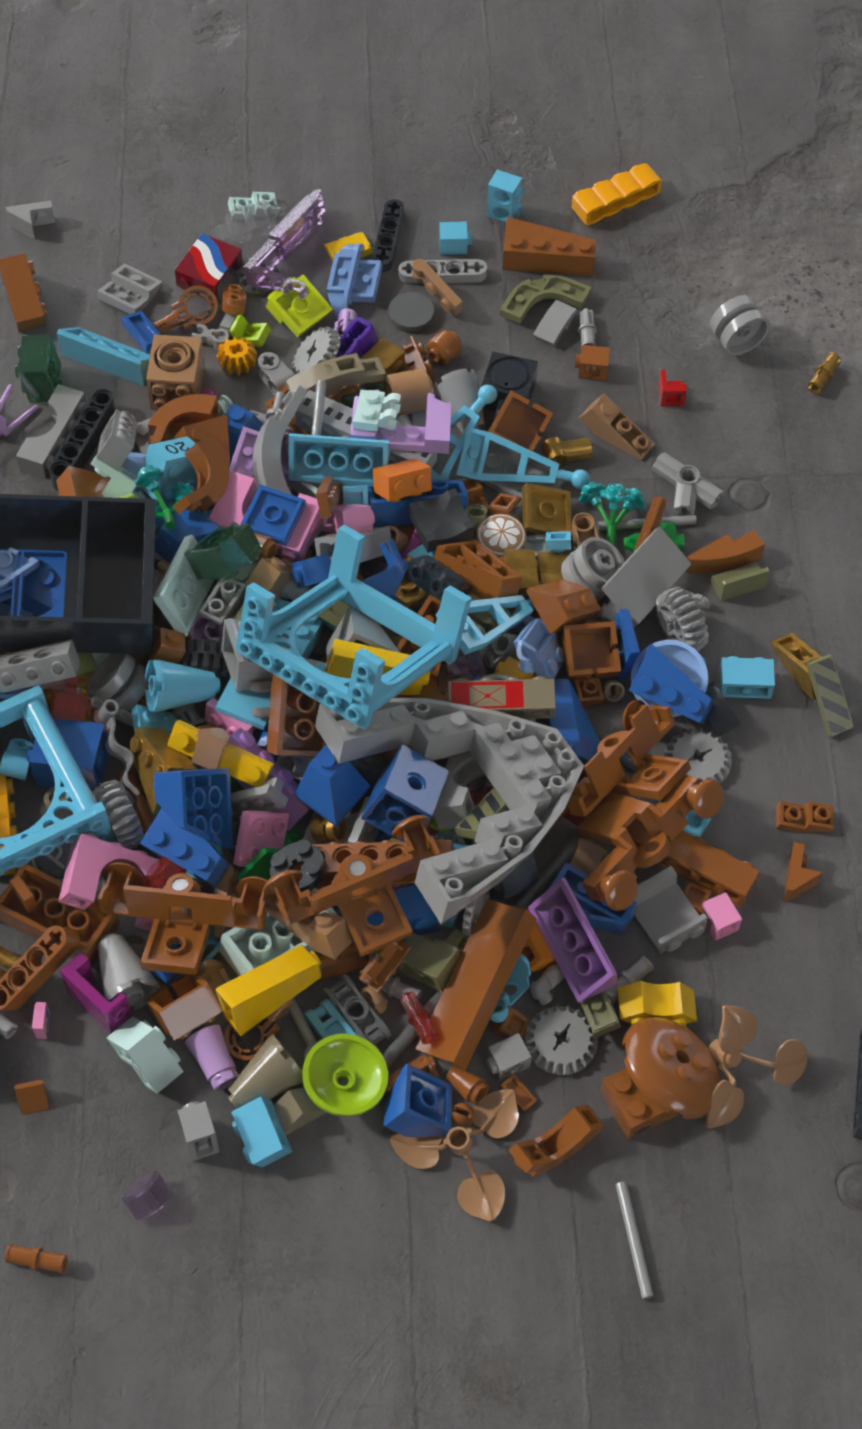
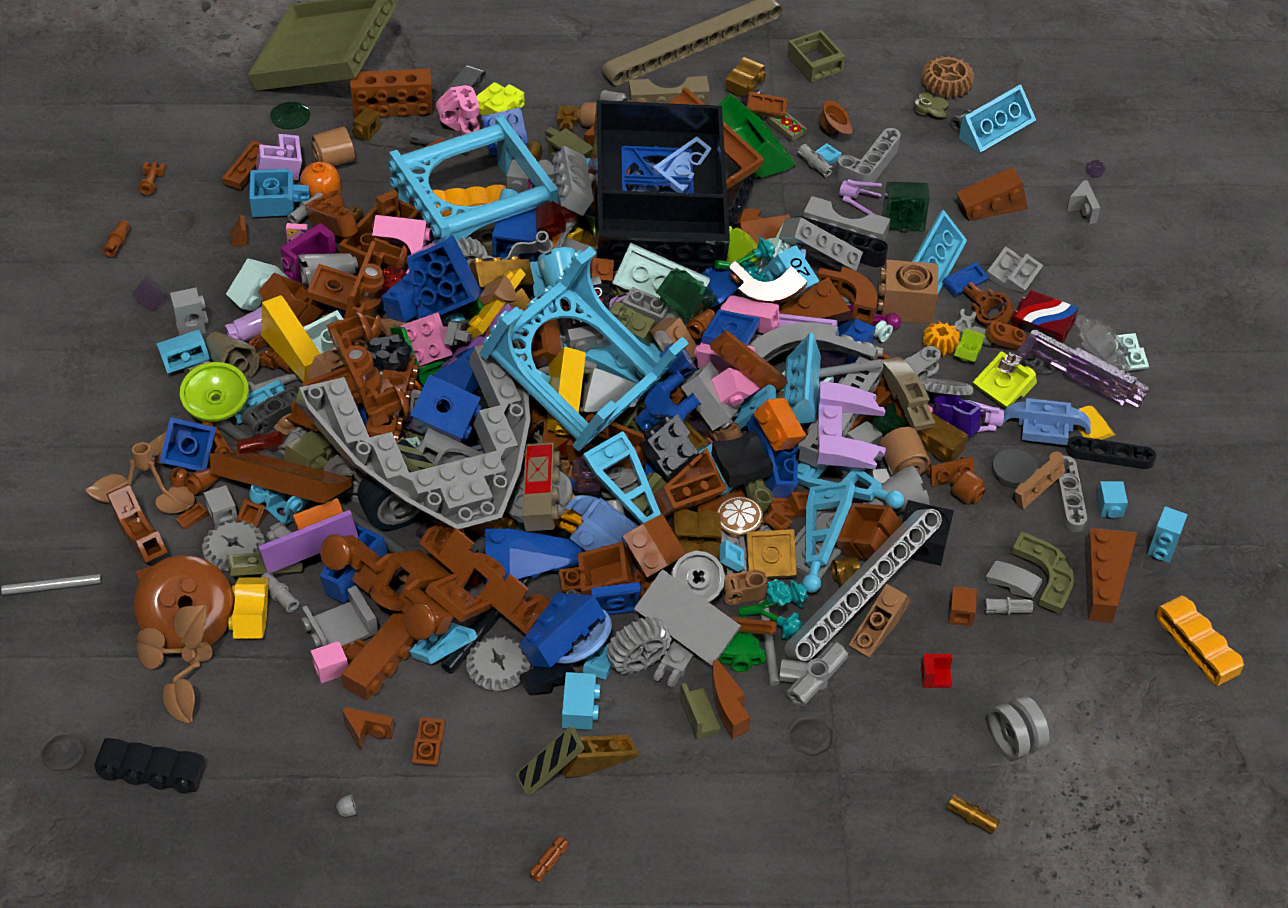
camera: 90 degrees right, 10 degrees down
(370, 407) = (849, 394): light aqua plate -> none
(591, 427) = (854, 588): none -> light grey beam

